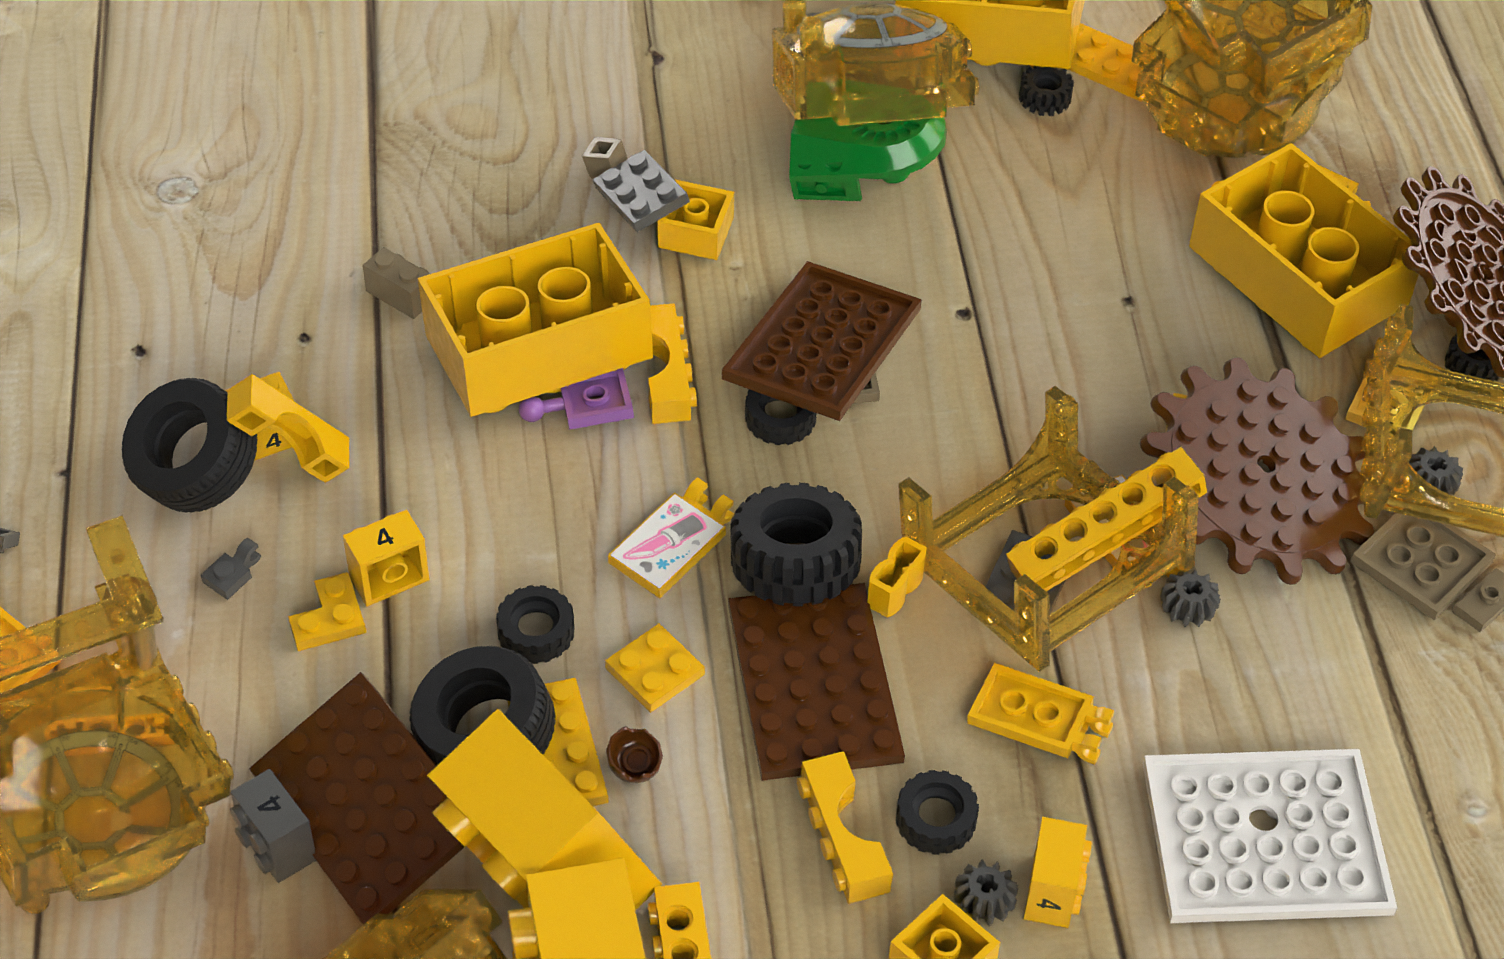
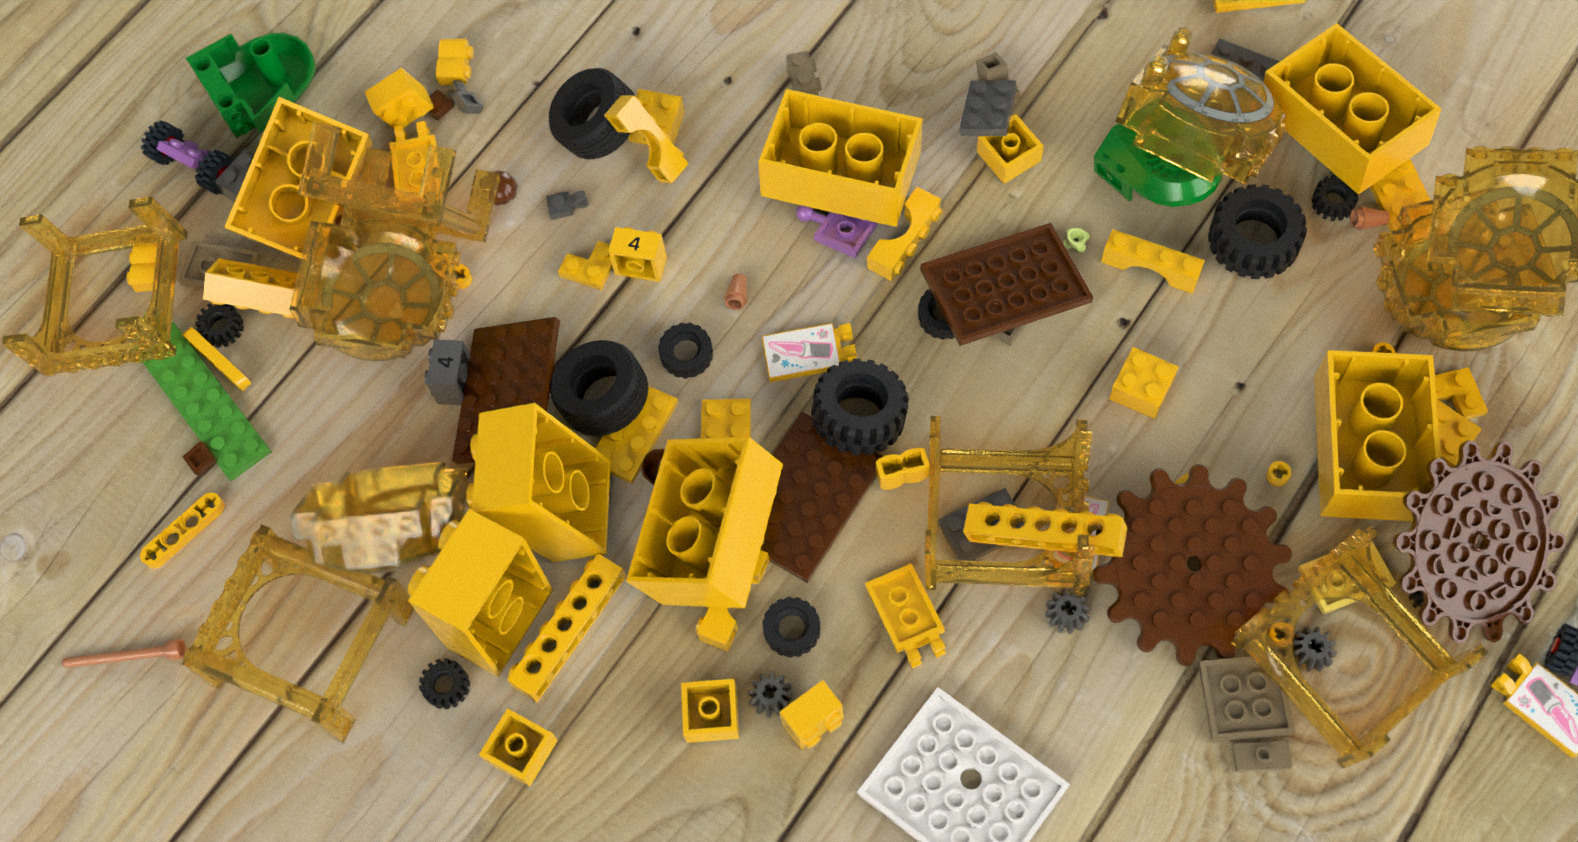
camera: 50 degrees right, 15 degrees up
(536, 531) = (736, 294): none -> nougat cone
(761, 754) = (705, 522): none -> yellow brick
(844, 262) = (1076, 233): none -> yellowish green plate
(906, 242) = (1176, 267): none -> yellow arch
(1006, 178) = (1264, 206): none -> black tyre
(1045, 348) = (1143, 382): none -> yellow brick
(1091, 89) = (1367, 218): none -> nougat cone
(1244, 342) = (1272, 479): none -> yellow bush

